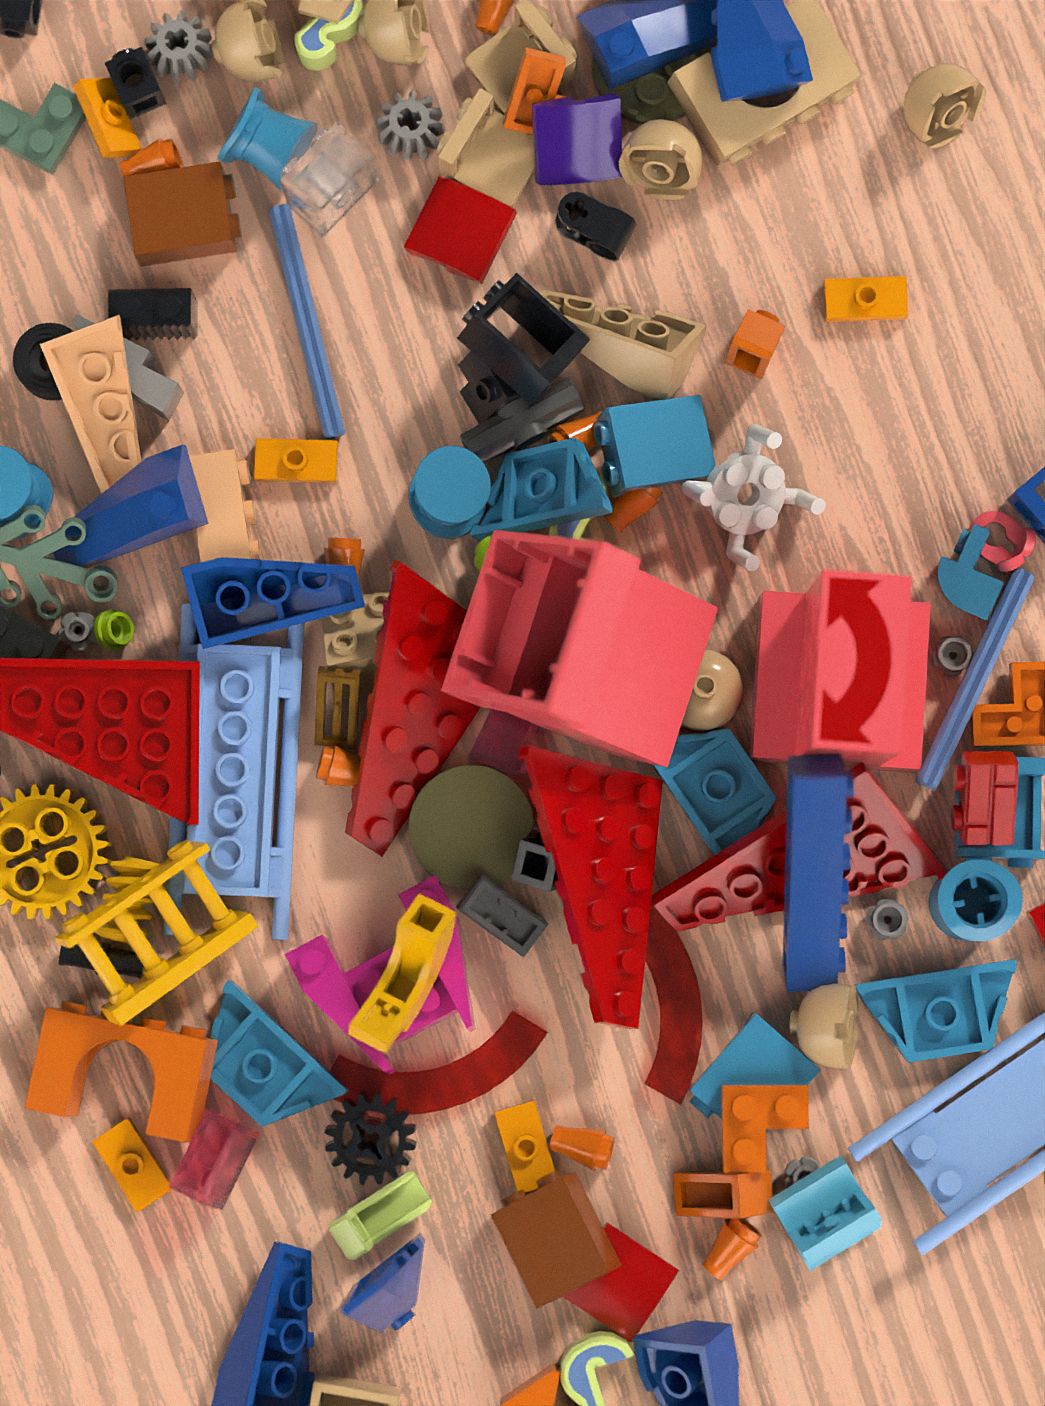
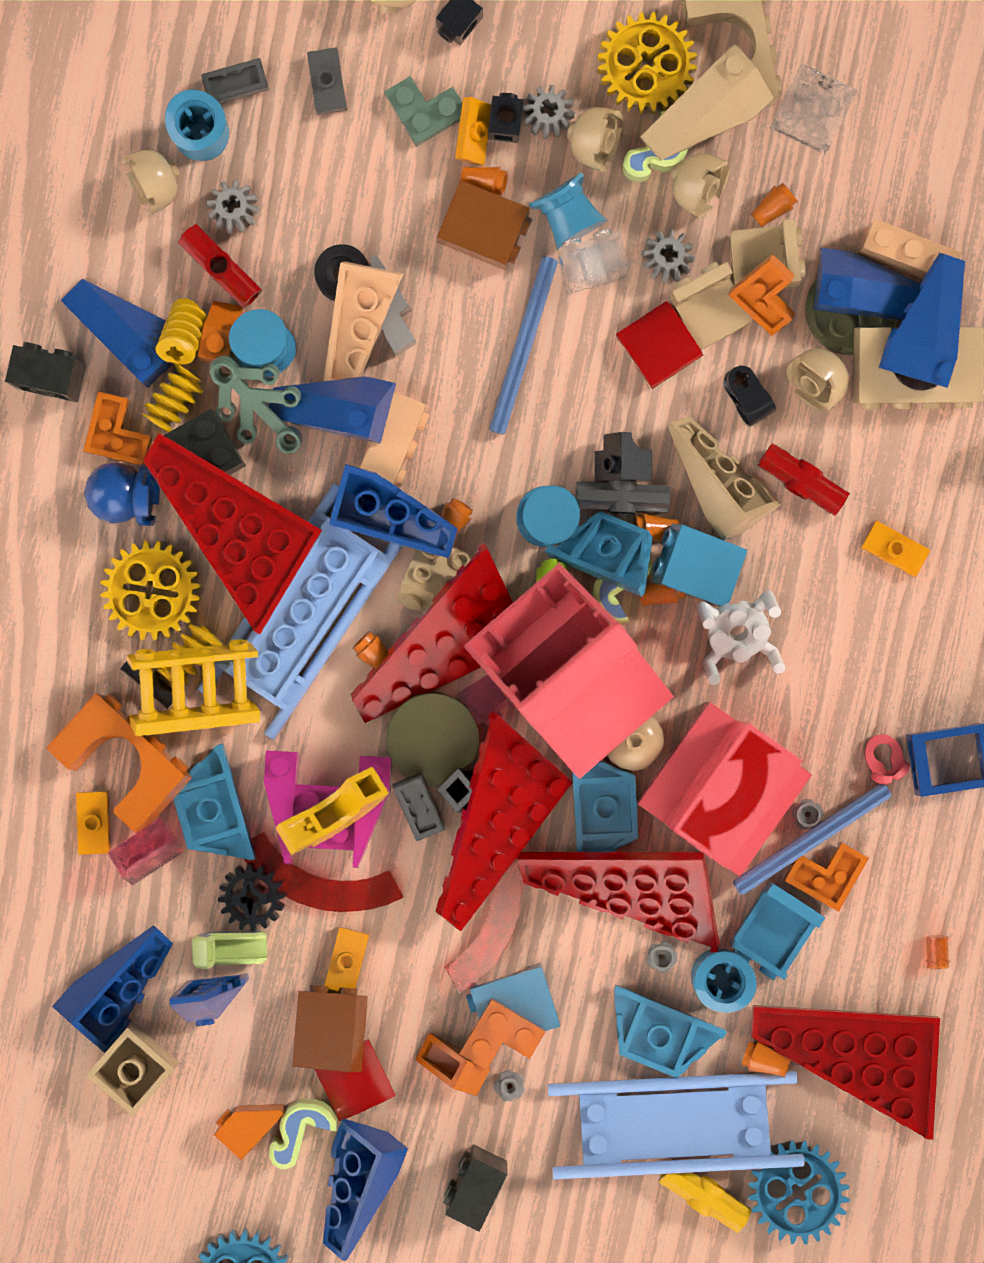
camera: 30 degrees right, 5 degrees up
(70, 622) = (264, 464): light grey plate -> none
(121, 627) = (279, 474): lime plate -> none
(155, 312) = (427, 281): black brick -> none
(296, 460) = (462, 433): light orange plate -> none
(339, 678) = (404, 595): pearl gold tile -> none
(539, 320) = (673, 437): black window -> none
(577, 140) = (770, 333): dark purple slope -> none
(586, 1146) = (383, 983): orange cone -> none
(714, 282) = (803, 479): none -> red piece
(732, 1245) = (437, 1100): orange cone -> none
(755, 342) = (805, 535): orange slope -> none
(814, 870) = (630, 903): blue brick -> none
(825, 1213) = (509, 1116): medium azure bracket -> none
(827, 1025) = (581, 1000): tan cylinder -> none
(838, 1321) = (476, 1187): none -> pearl dark grey brick
(963, 584) = (843, 776): dark azure brick -> none
(986, 797) = (771, 920): red brick -> none

